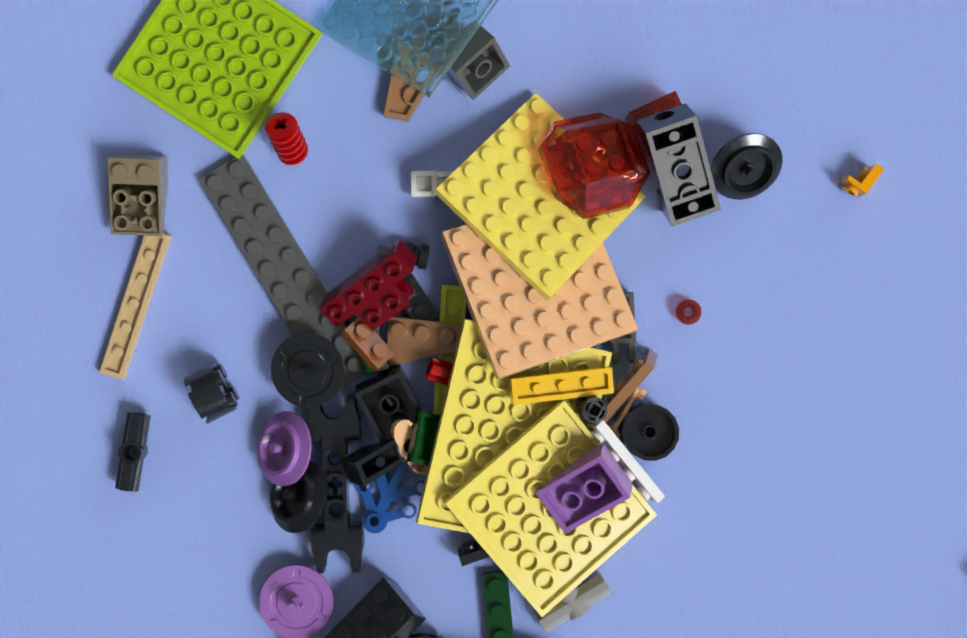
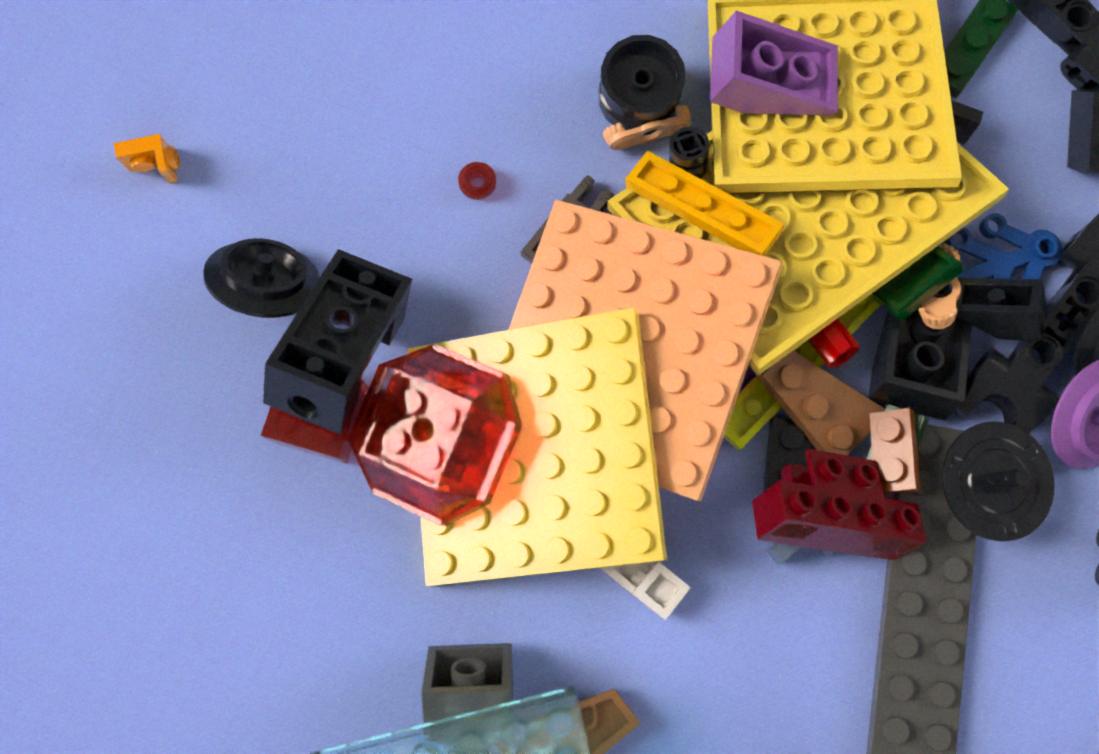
camera: 135 degrees left, 10 degrees down
(421, 253) = (735, 507): black wheel -> none
(627, 385) = (609, 152): medium nougat wing -> none
(630, 466) = (696, 62): white plate -> none

